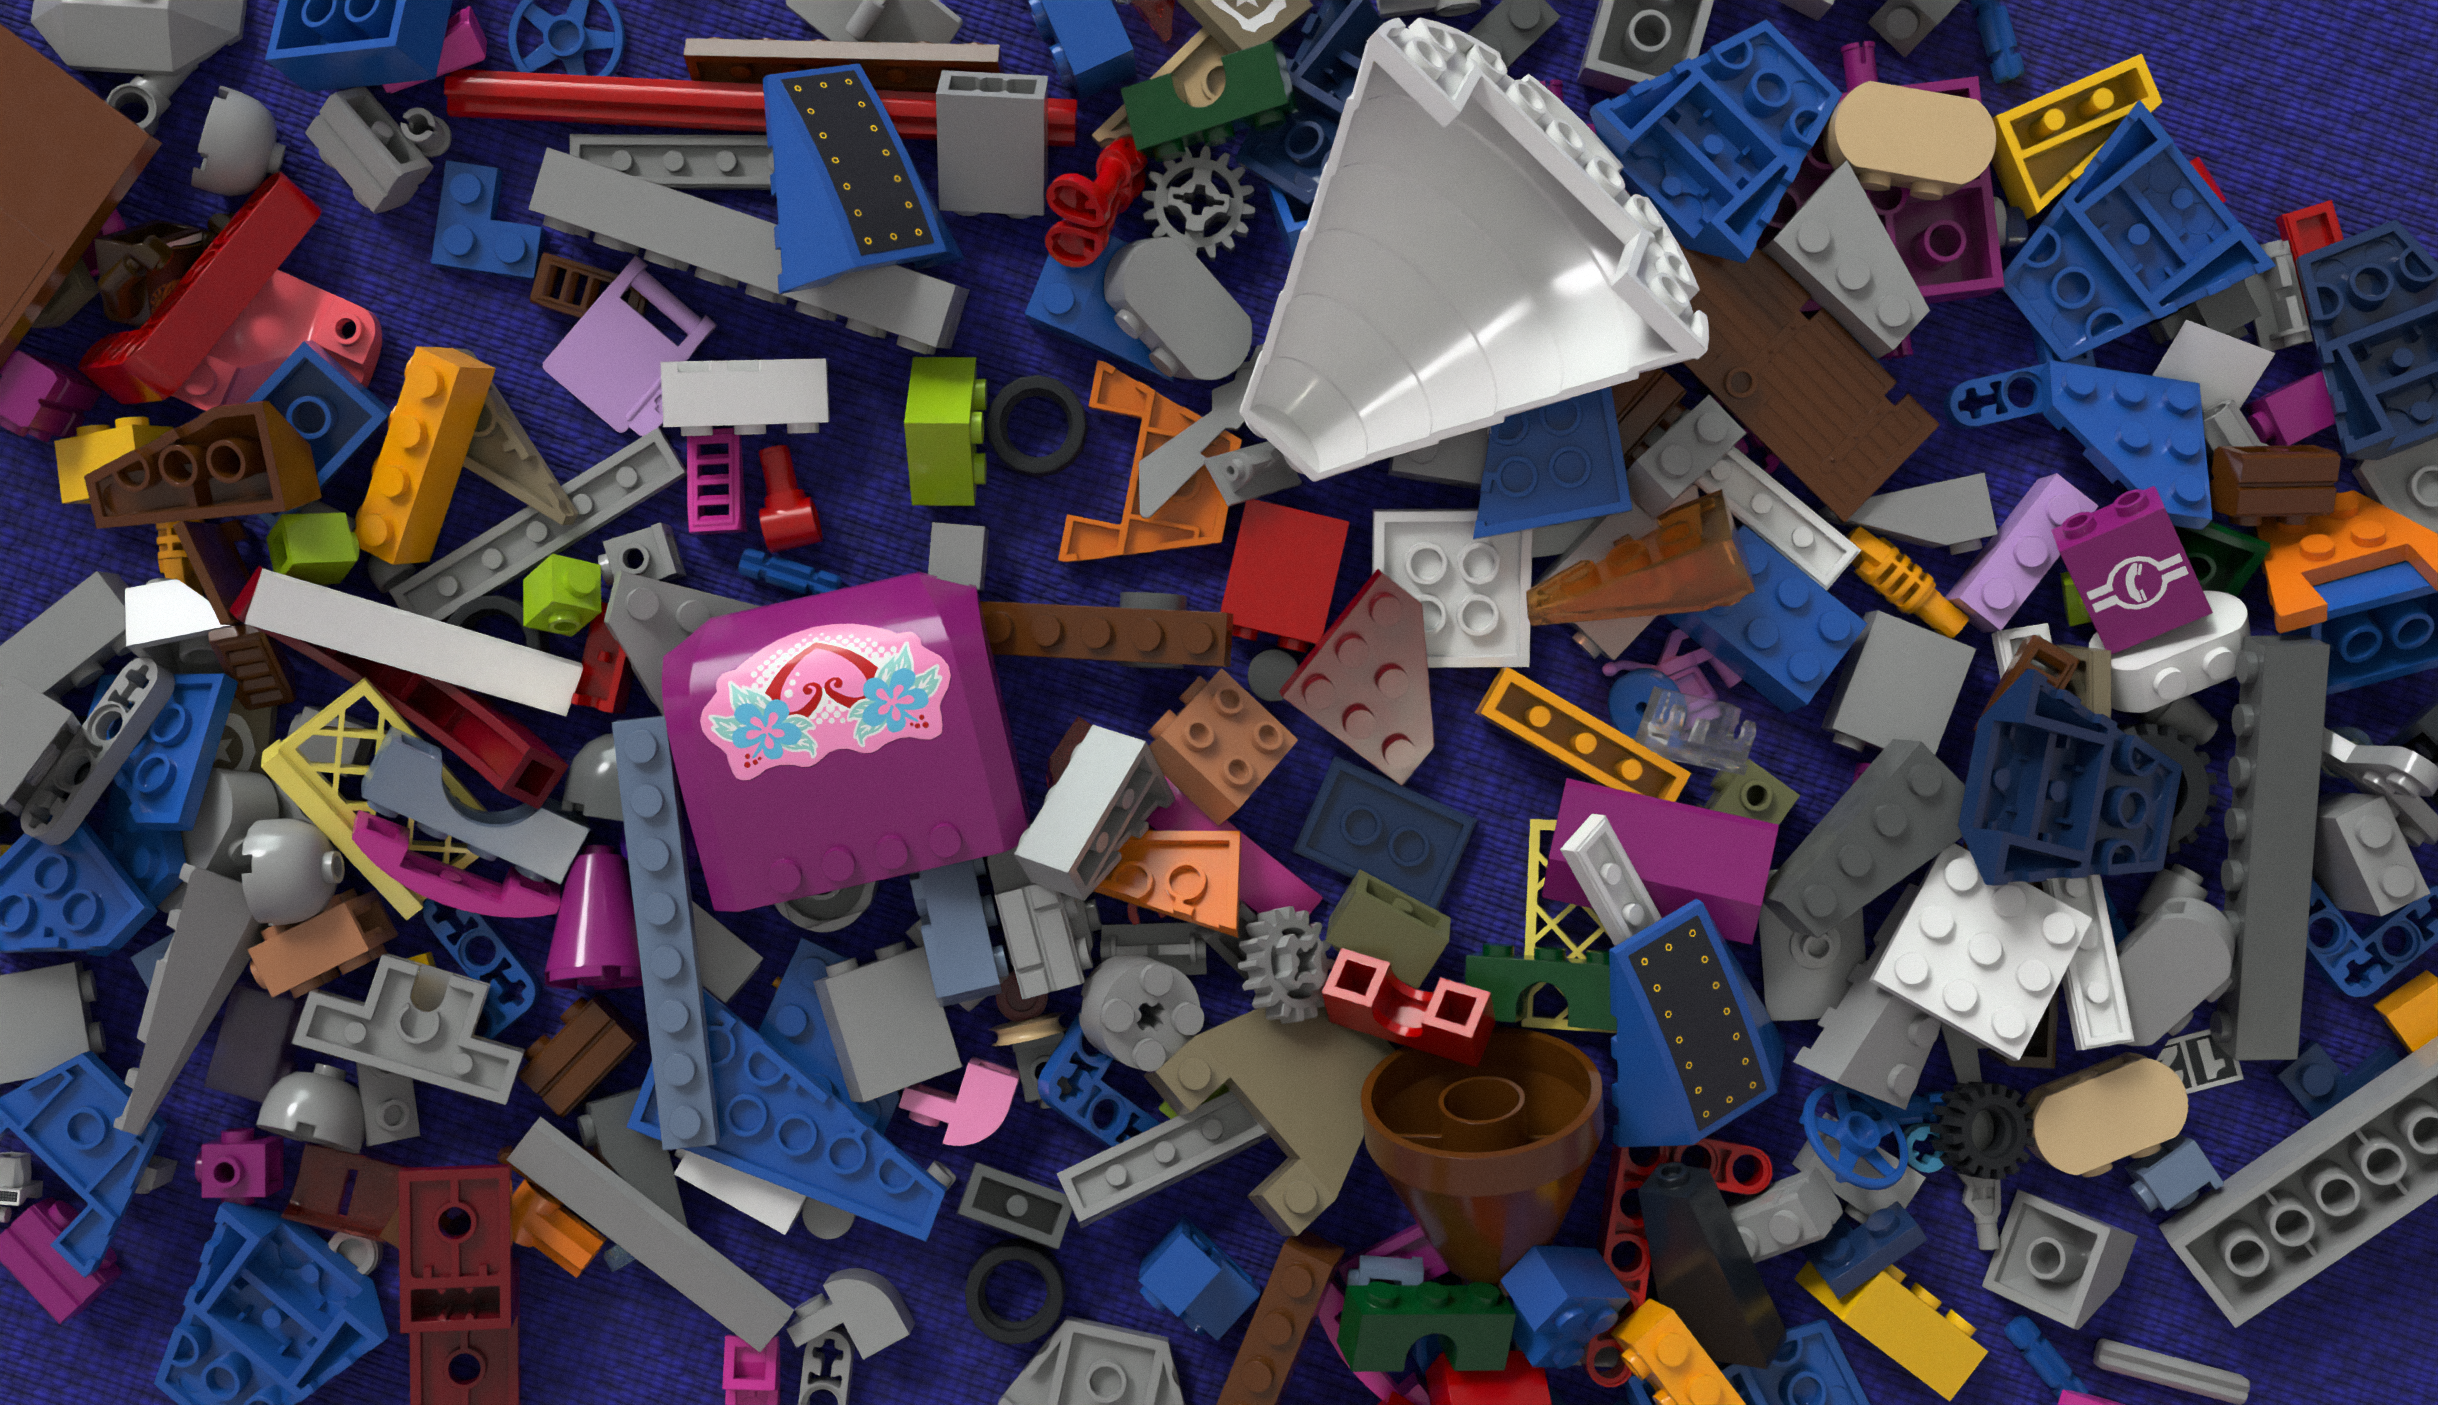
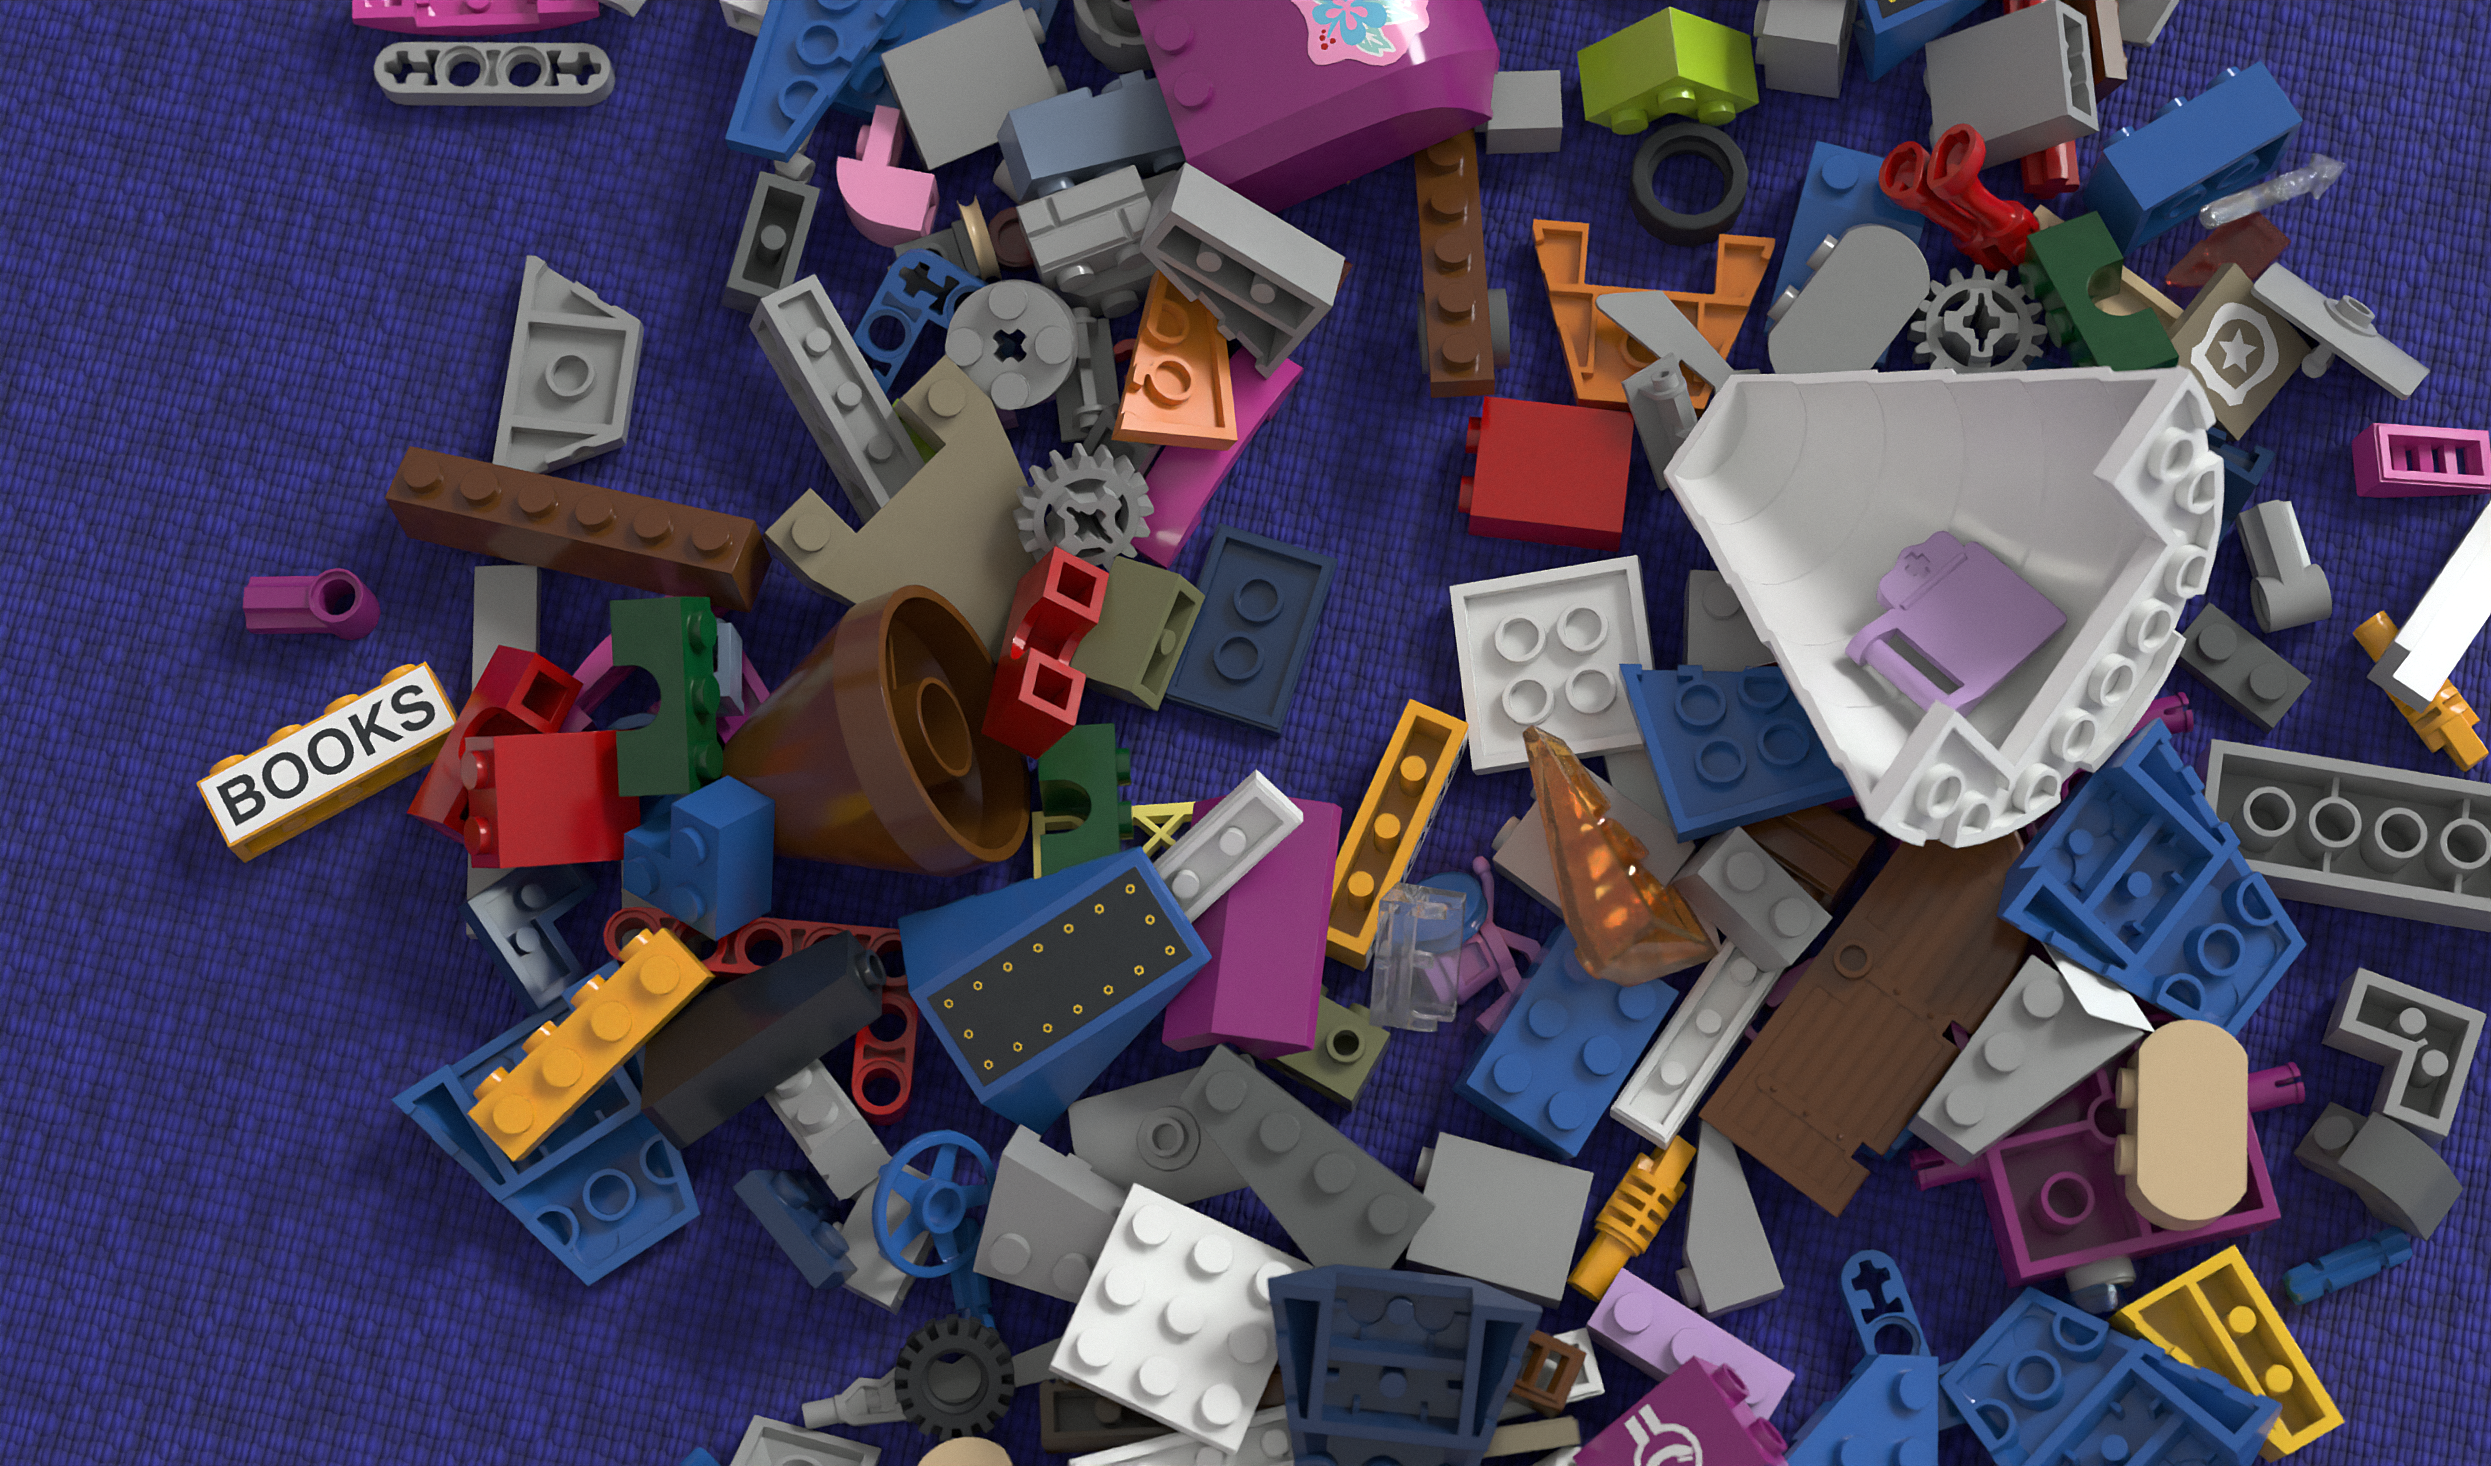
camera: 85 degrees right, 15 degrees down
(826, 1220) = (734, 54): light grey tile -> none
(863, 1303) = (638, 104): light grey brick -> none
(1018, 1331) = (662, 222): black tyre -> none
(1196, 1280) = (709, 448): blue brick -> none
(1219, 745) = (1336, 412): nougat brick -> none
(1269, 673) = (1426, 481): dark grey tile -> none
(1372, 679) = (1433, 581): plate -> none
(1486, 252) = (1959, 614): none -> lavender piece
(1813, 189) = (2098, 994): none -> white sticker
(1905, 1326) = (702, 1302): yellow wedge -> none
(1929, 1162) = (914, 1300): dark azure bush -> none

